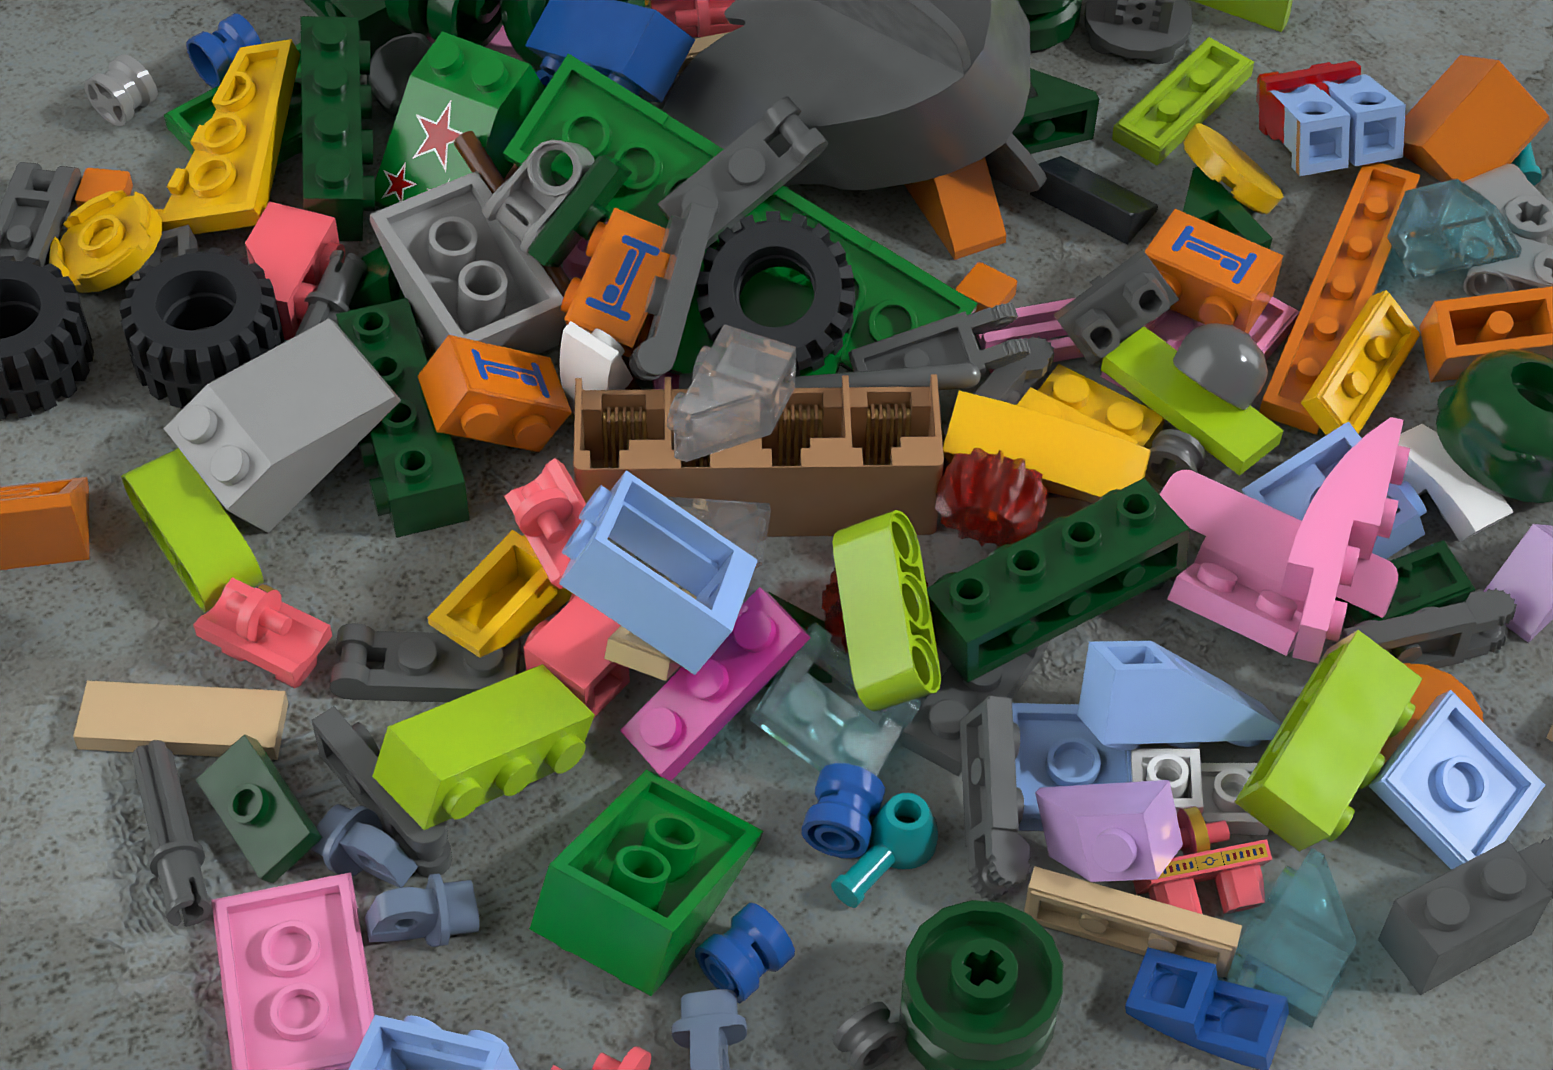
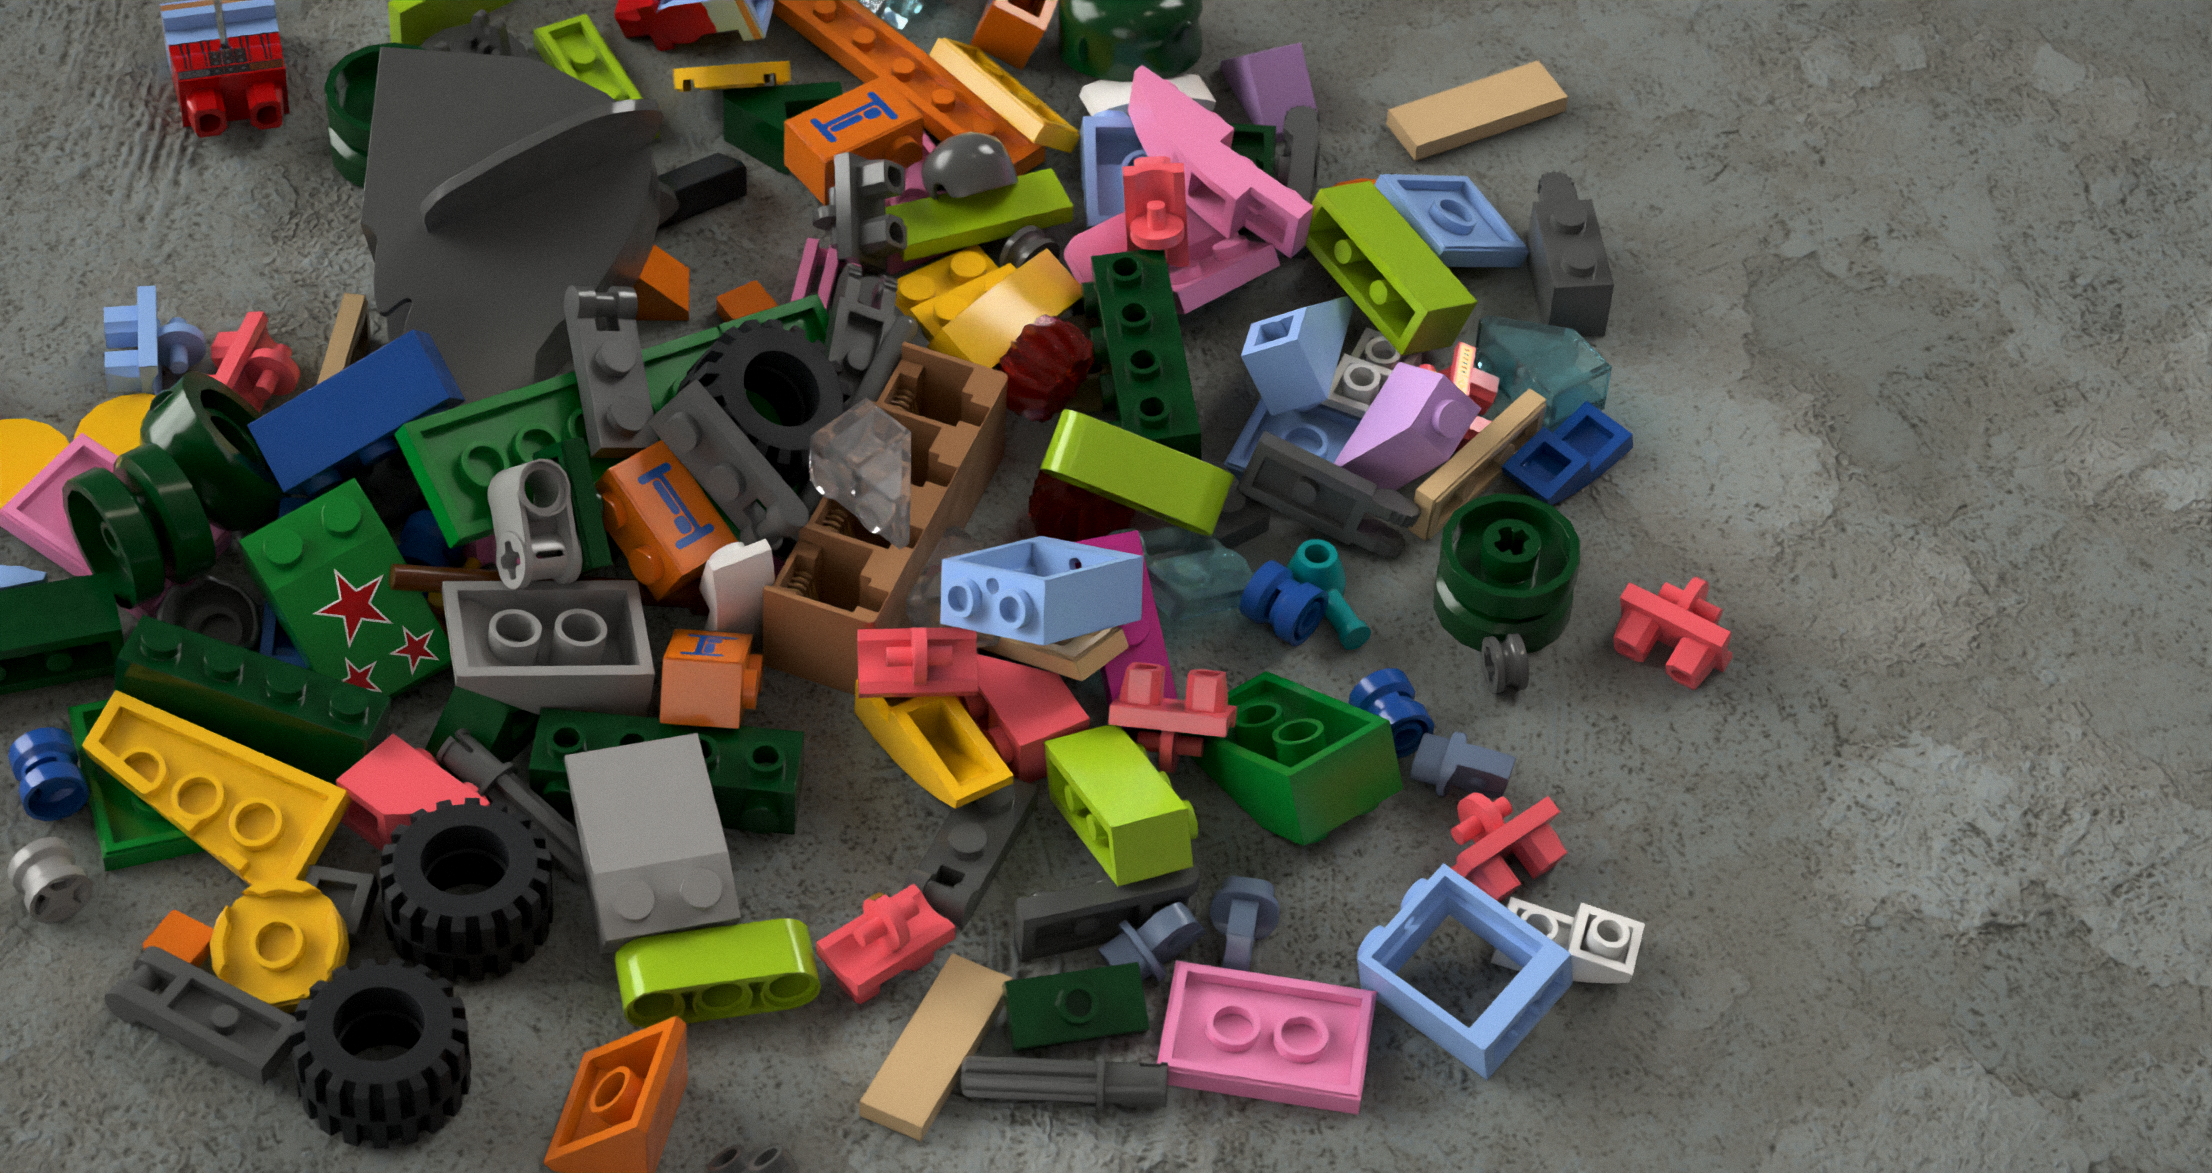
camera: 70 degrees left, 5 degrees down
(619, 755) = (1201, 713): none -> coral hips
(1229, 507) = (1156, 208): none -> coral hips

